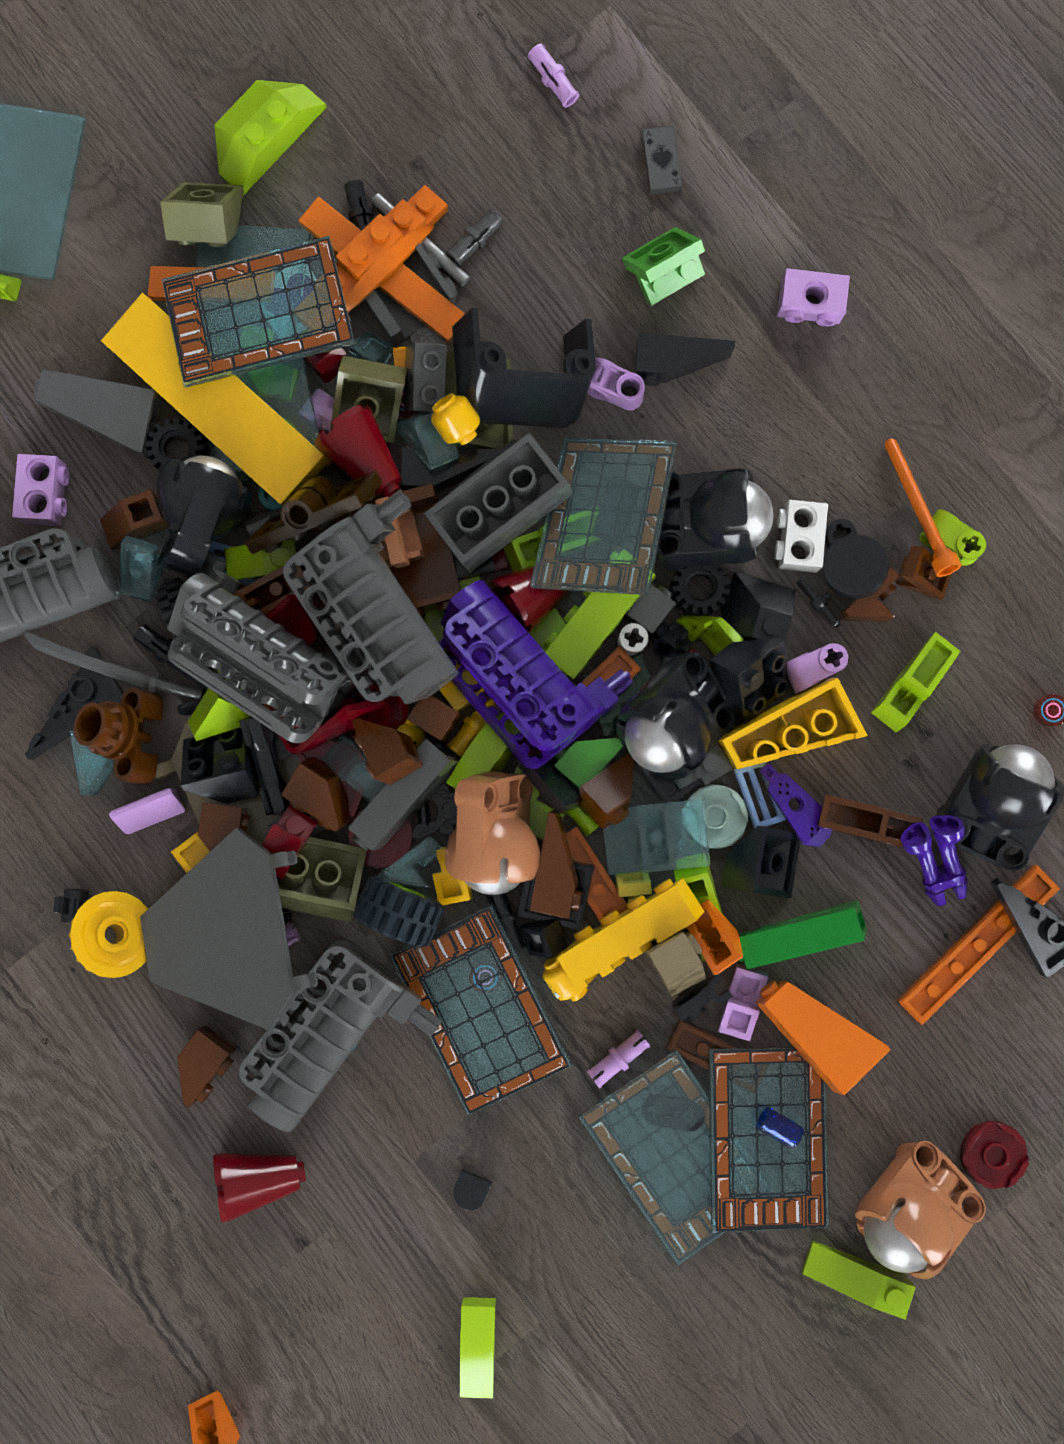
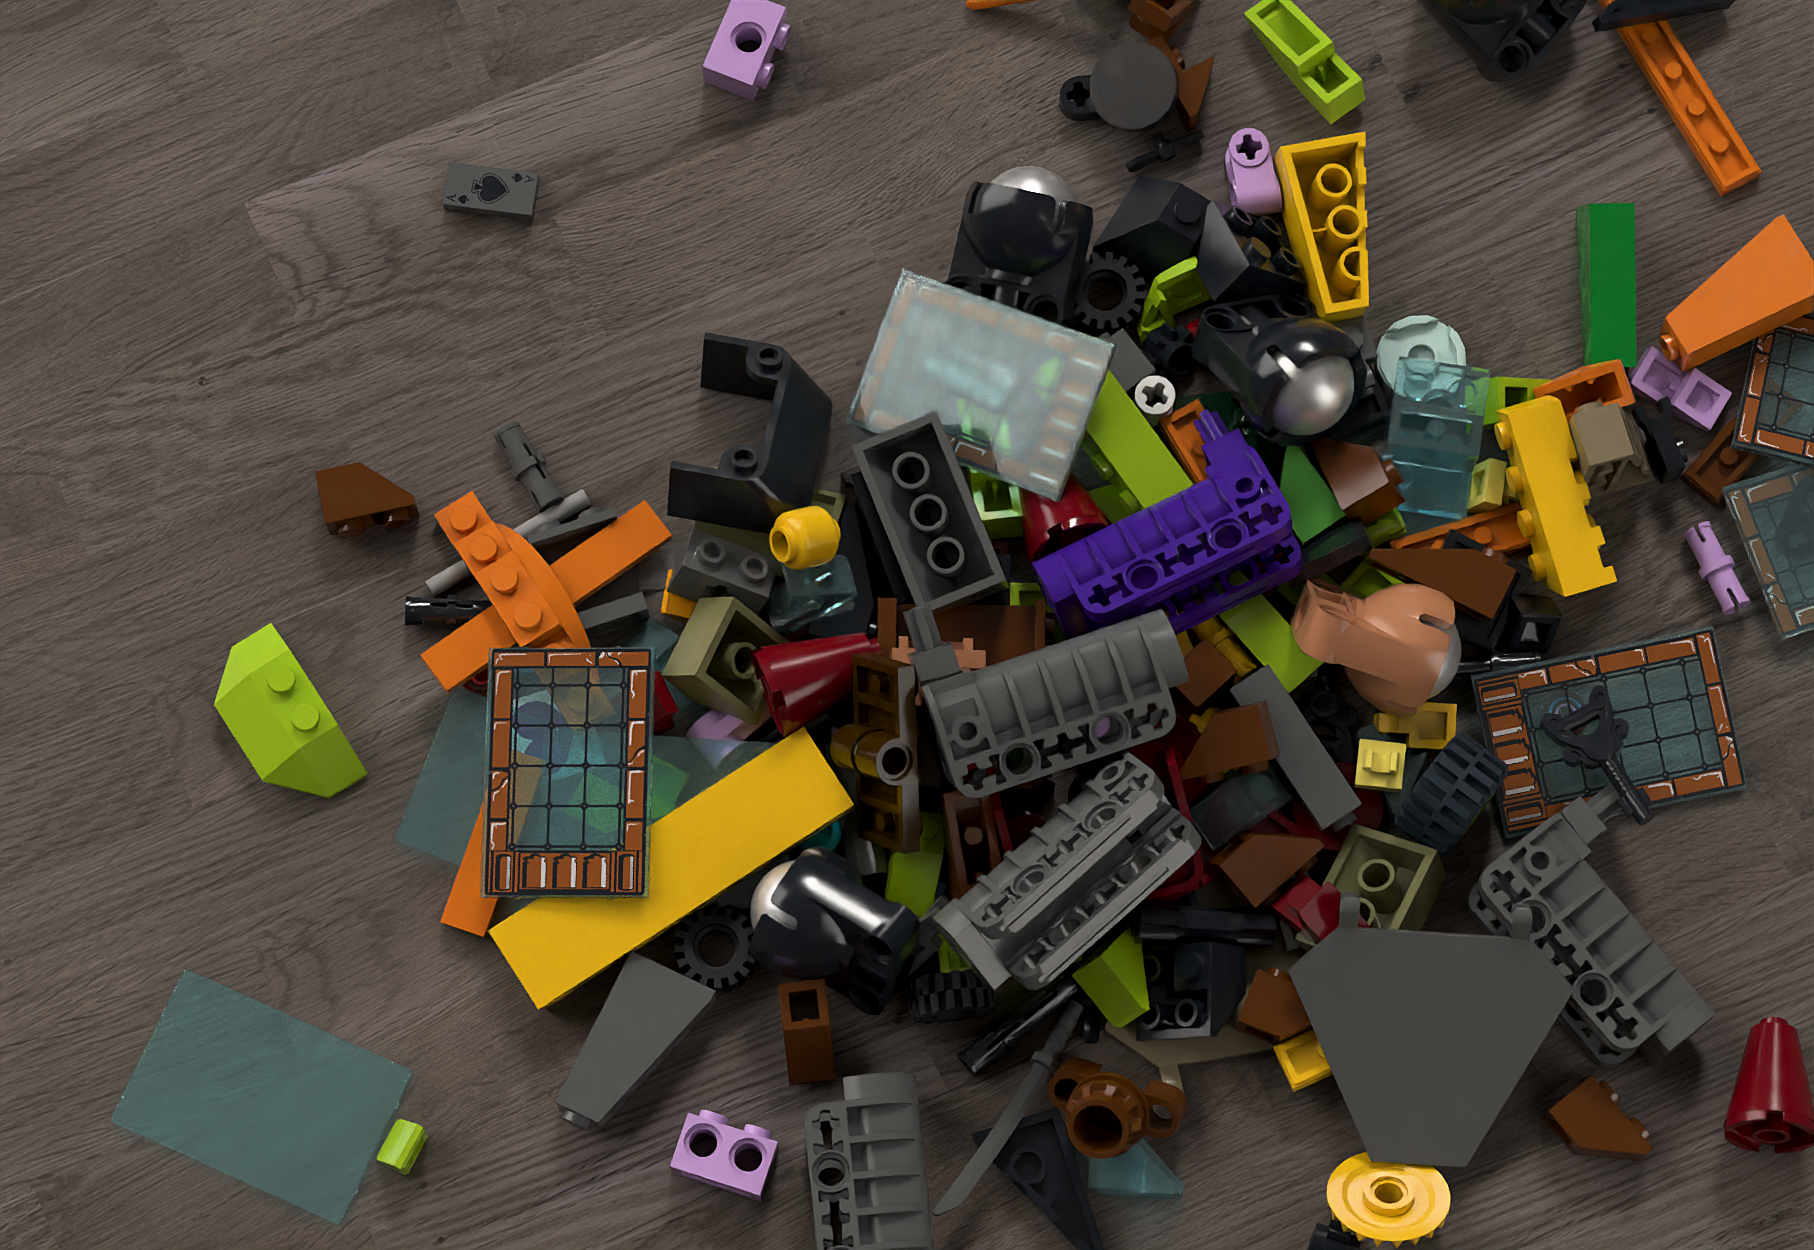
camera: 80 degrees left, 10 degrees down
(139, 568) = (877, 1039): clear light blue slope -> none
(148, 810) = (1223, 1116): lavender slope -> none
(202, 213) = (388, 824): olive slope -> none
(407, 857) = (1380, 765): none -> light yellow tile
(422, 131) = (362, 498): none -> reddish brown slope
(459, 1007) = (1599, 749): none -> black piece
(553, 75) = (327, 302): lavender pin -> none
(558, 981) = (1592, 610): yellow head -> none
(611, 380) = (794, 335): lavender piece -> none
(666, 264) = (641, 221): bright green bracket -> none
(671, 357) = (775, 257): black slope -> none
(759, 796) = (1409, 278): light blue tile -> none
(763, 863) = (1499, 312): black slope -> none
(808, 810) = (1442, 237): dark purple piece -> none
(809, 538) = (1076, 135): white brick -> none
(865, 820) = (1479, 161): reddish brown slope -> none
(918, 841) = (1521, 104): dark purple piece -> none

